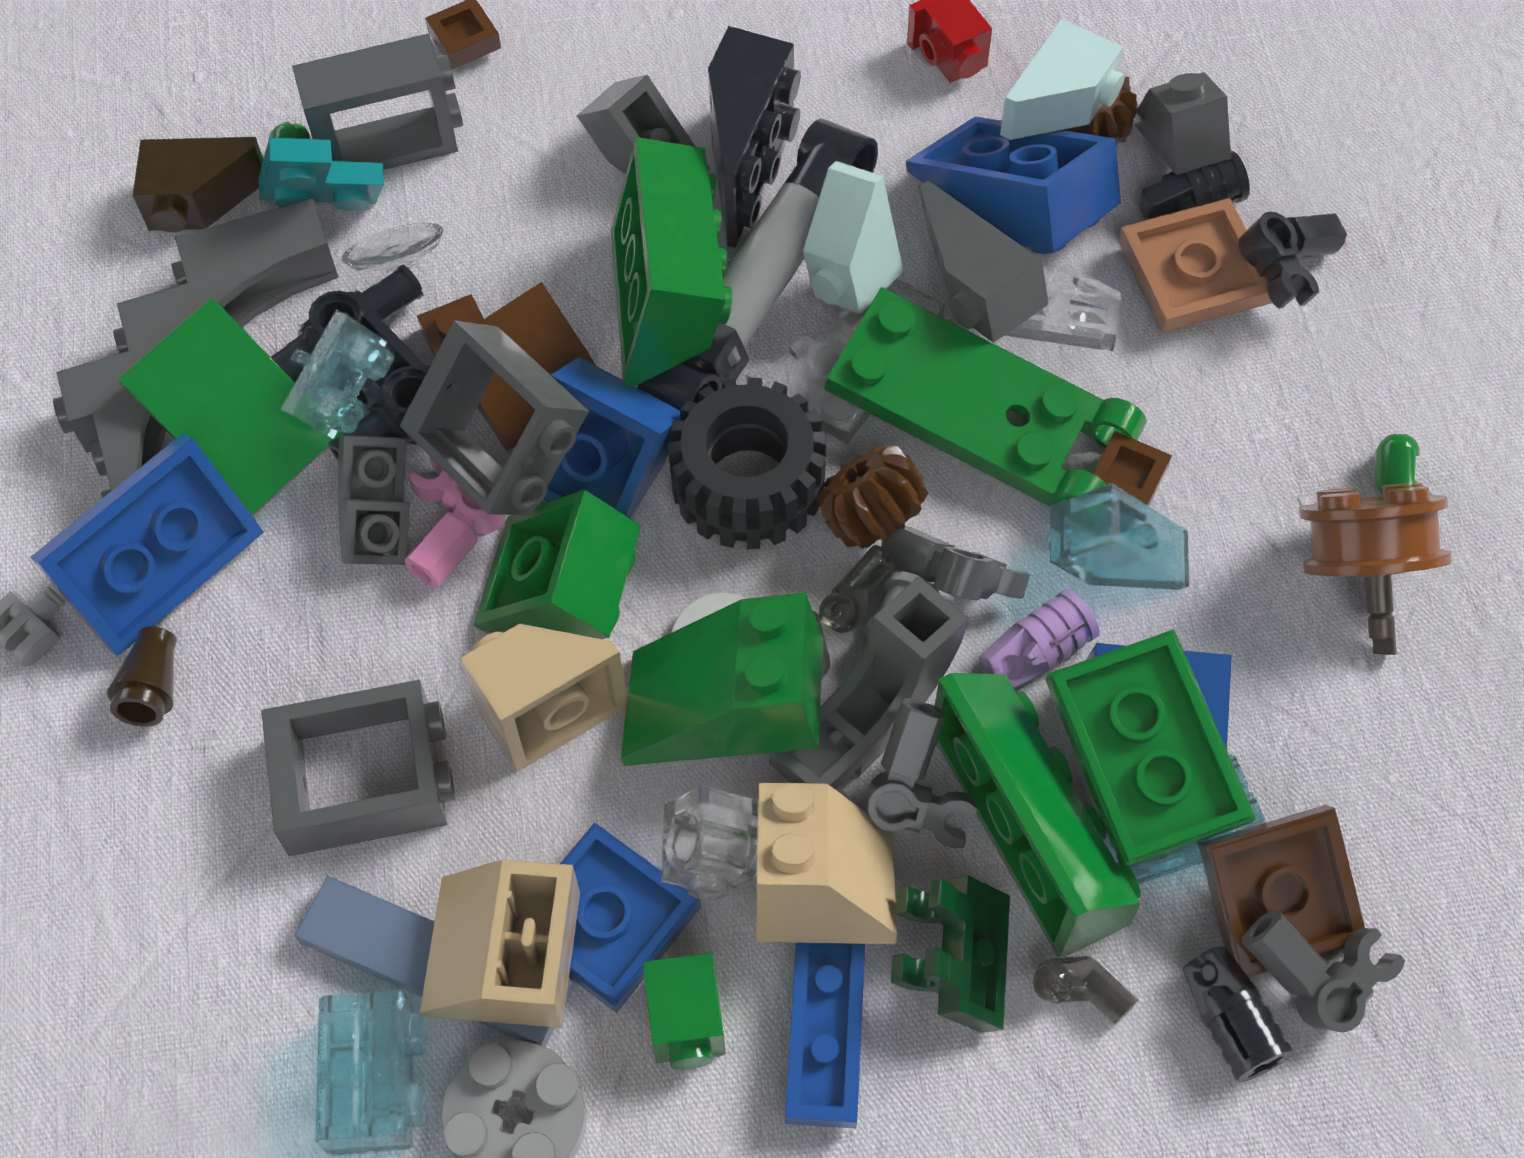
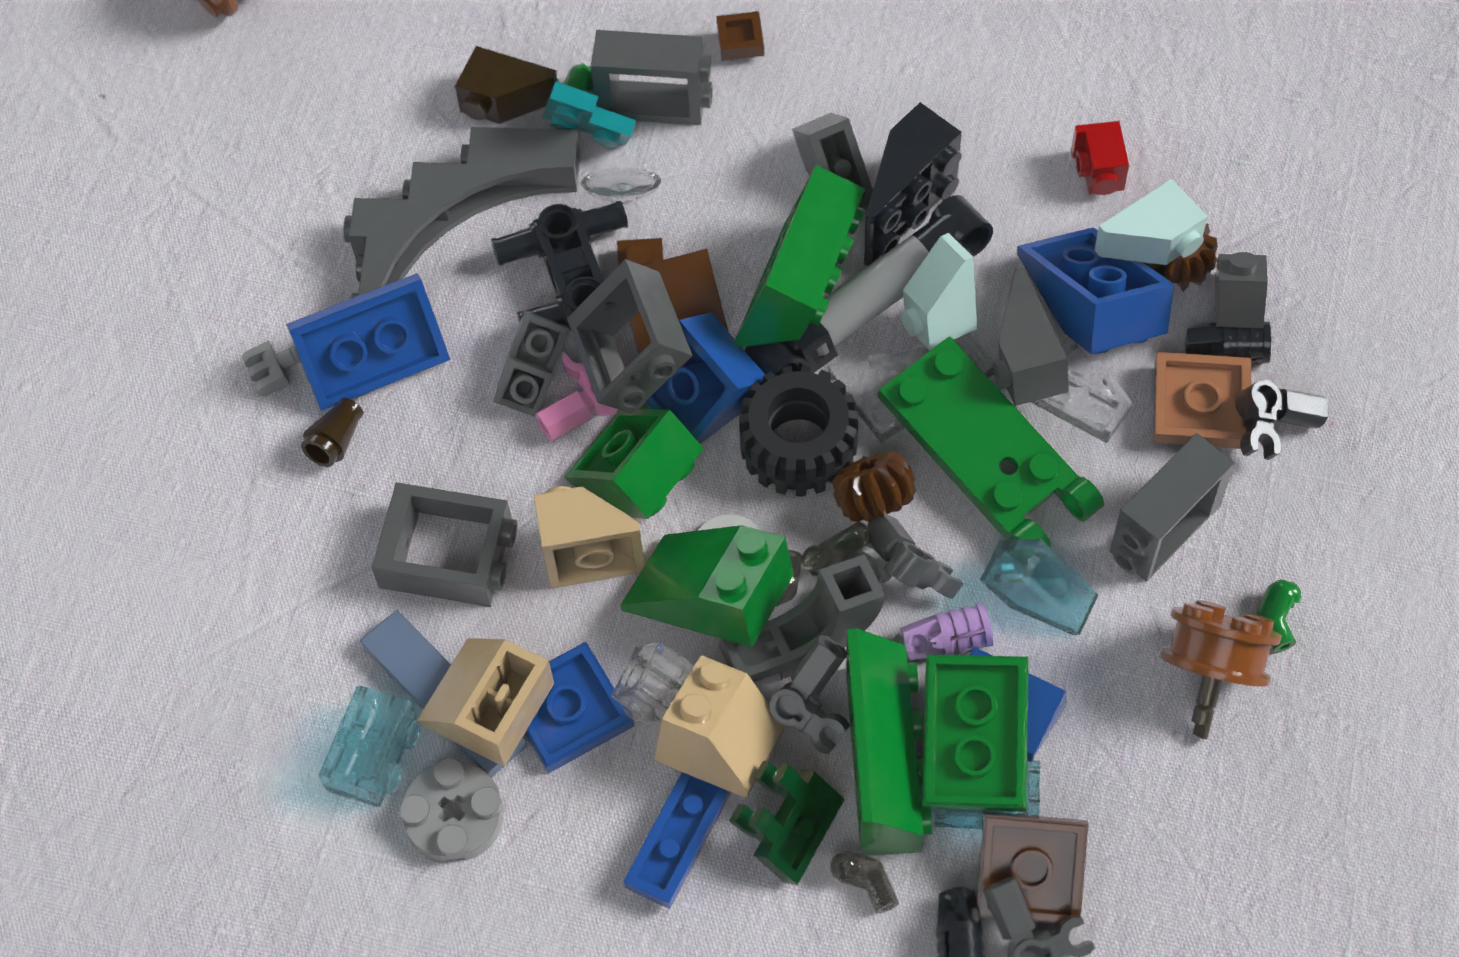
camera: 25 degrees right, 0 degrees up
(228, 398) = (460, 264): green tile -> none
(335, 374) = (536, 267): clear light blue hips -> none
(684, 1010) = (589, 787): green brick -> none
(1133, 467) = (1075, 536): reddish brown plate -> none
(1234, 394) = (1170, 507): none -> dark grey window

